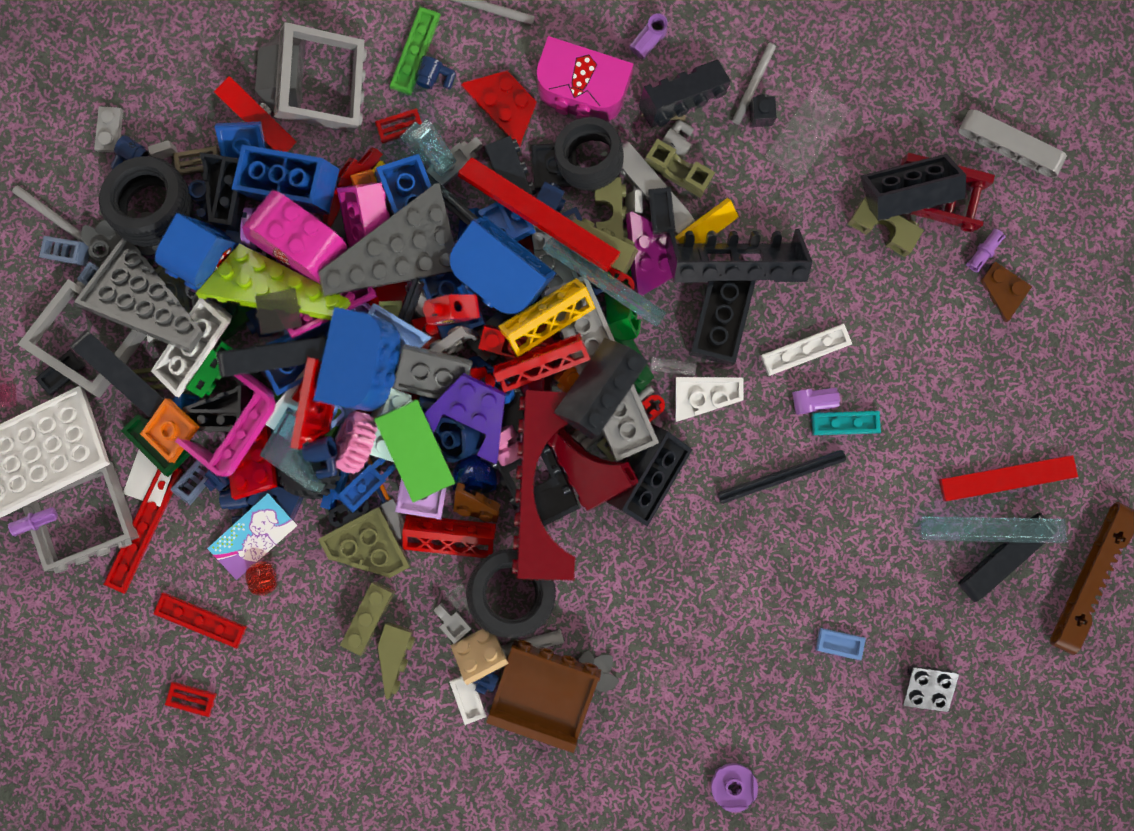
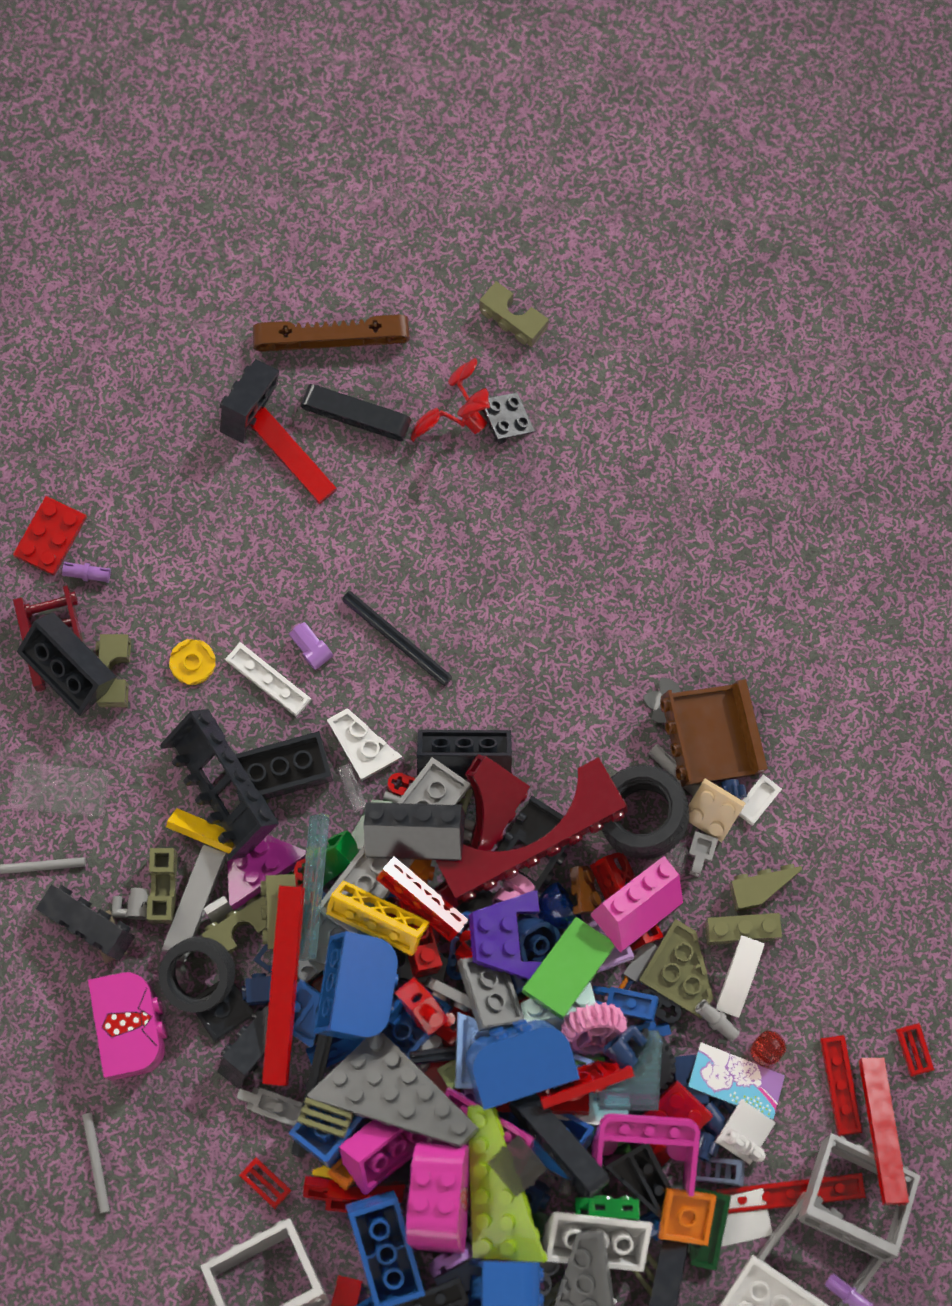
camera: 120 degrees left, 10 degrees down
(67, 602) = (841, 1229): none -> light grey window
(138, 630) = (883, 1131): none -> tile
(207, 518) = (746, 1133): none -> white hinge
(308, 550) = (717, 1020): none -> light grey pin
(330, 590) = (739, 976): none -> white slope
(415, 47) = (180, 1213): bright green tile -> none
(426, 175) = (307, 1111): none -> olive tile
(429, 72) = (197, 1183): dark blue piece -> none
(430, 146) = (274, 1135): clear light blue arch -> none
(435, 543) = (640, 904): none -> dark pink slope
(503, 102) = (186, 1093): red wing -> none
(648, 36) = (46, 989): medium lavender piece -> none
(661, 210) = (213, 877): black tile -> none
(743, 797) = (693, 519): medium lavender plate -> none
(762, 111) = (62, 841): black brick -> none
(840, 644) = (513, 510): medium blue tile -> none
(846, 423) = (315, 609): teal tile -> none
(857, 296) = (191, 669): none -> yellow tile
(953, 656) = (468, 412): none -> red plant
(993, 529) = (339, 436): clear light blue tile -> none
(1005, 289) = (113, 536): reddish brown wing -> none
(1006, 756) = (526, 327): none -> olive arch
(1035, 238) = (50, 535): none -> red plate
(1073, 468) = (246, 399): none -> black wedge

